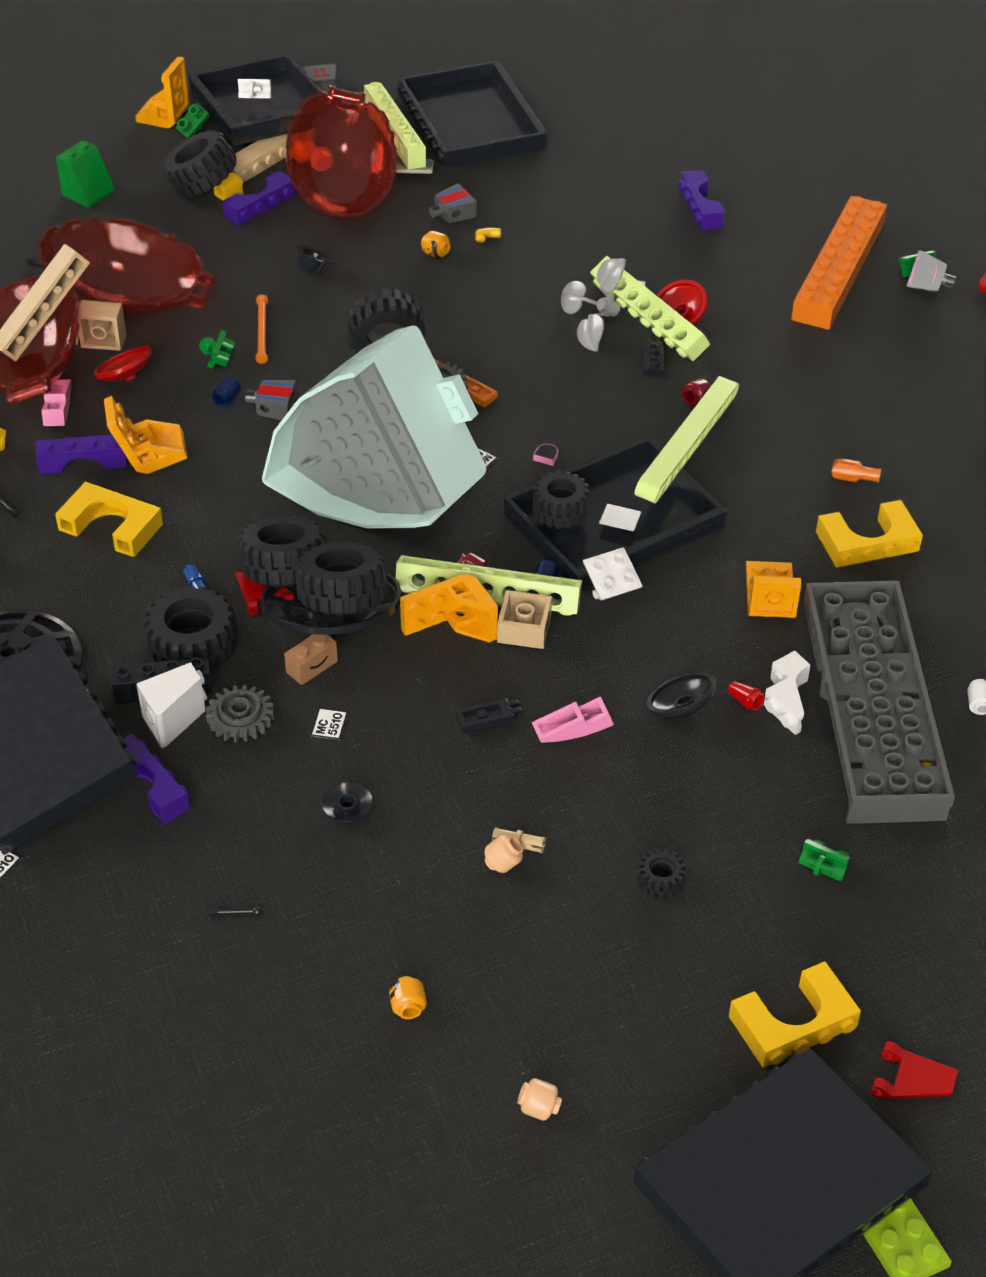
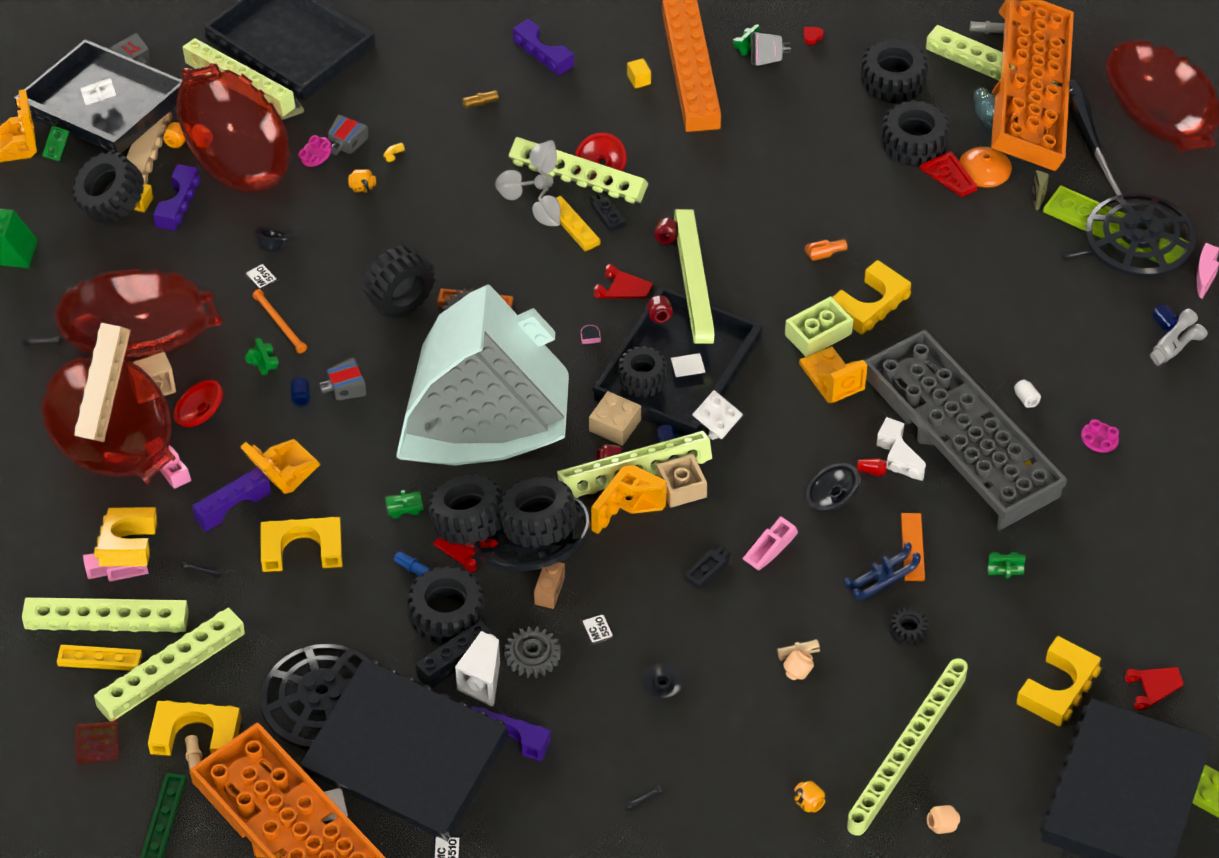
camera: 30 degrees left, 5 degrees up
(231, 522) = (404, 503): none -> green hips
(280, 288) = (261, 276): none -> sticker
(415, 207) = (315, 151): none -> dark pink dish
(505, 535) = (615, 418): none -> tan brick
(552, 1006) = (907, 753): none -> yellowish green beam
(605, 221) = (480, 99): none -> pearl gold pin
(611, 355) = (577, 227): none -> yellow plate
(617, 425) = (623, 285): none -> red flag
(626, 452) = (659, 309): none -> dark red head
(672, 805) = (883, 573): none -> dark blue piece
(730, 795) = (912, 532): none -> orange tile
(780, 252) = (639, 73): none -> yellow brick
(788, 537) = (818, 327): none -> yellowish green brick

